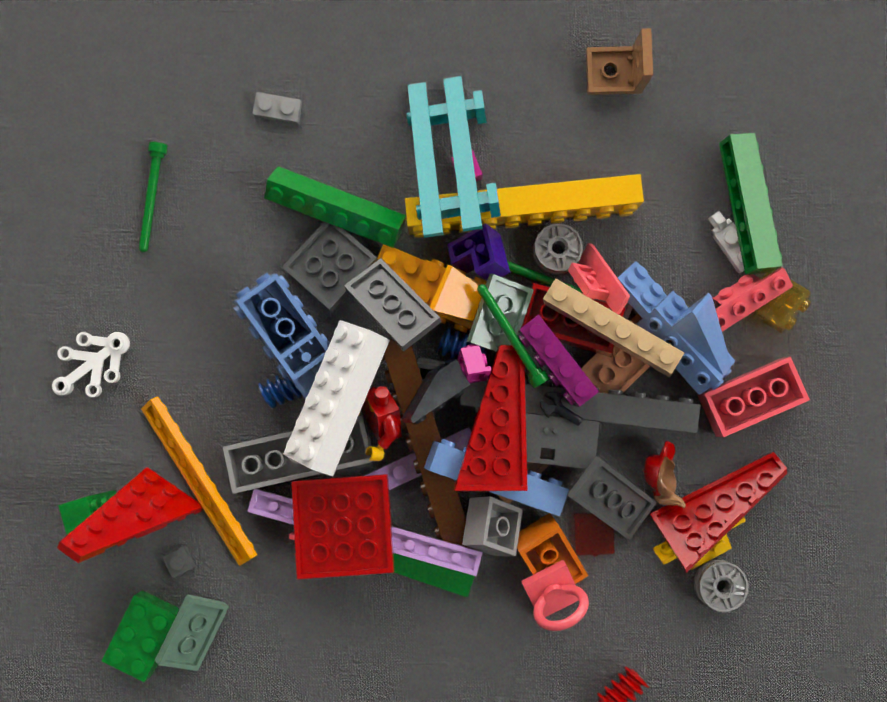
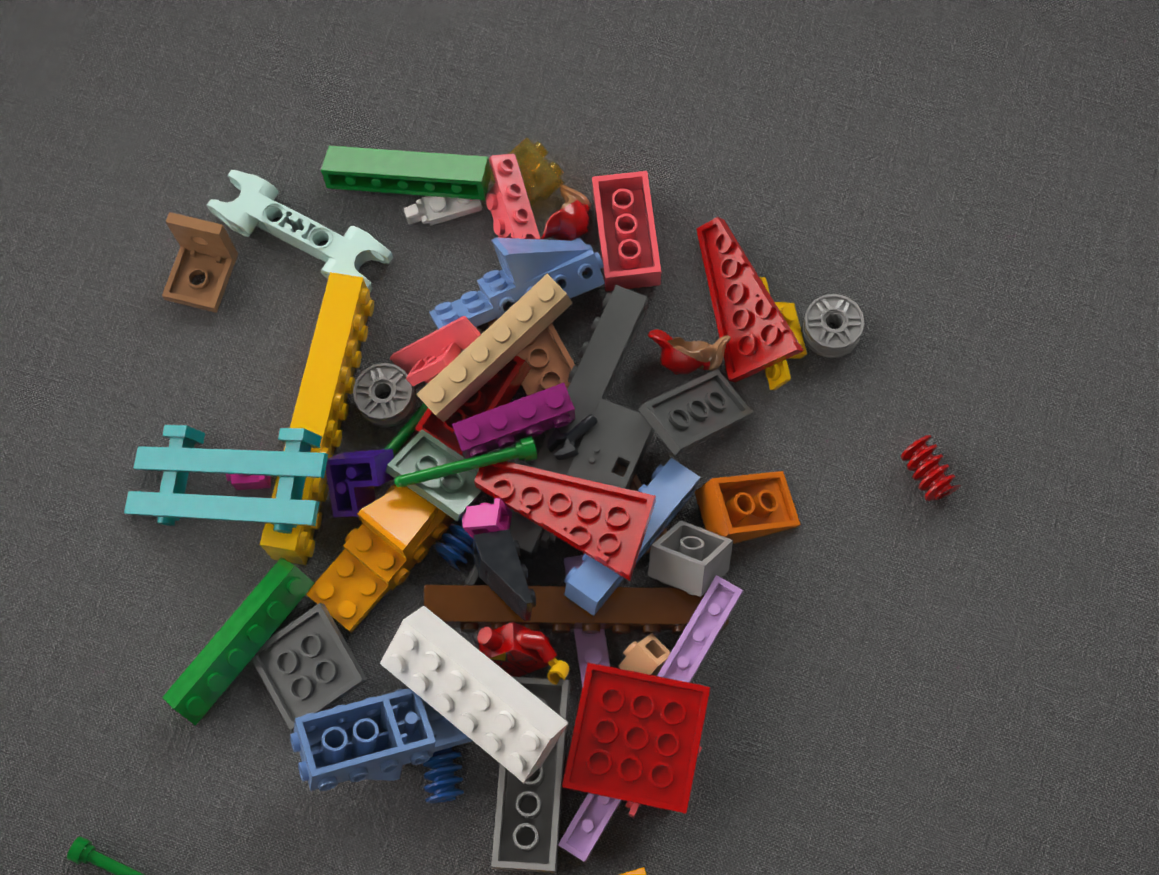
camera: 65 degrees left, 15 degrees down
(277, 108) = (89, 680): light grey plate -> none
(392, 304) = (382, 594): plate -> none
(408, 512) = (645, 656): none -> light nougat brick
(434, 575) = (731, 651): green tile -> none
(552, 591) = (788, 510): coral tile -> none
(592, 535) = (735, 451): clear red piece -> none
(683, 94) = (257, 208): none -> light aqua piece
(751, 350) = (571, 220): none -> red hair

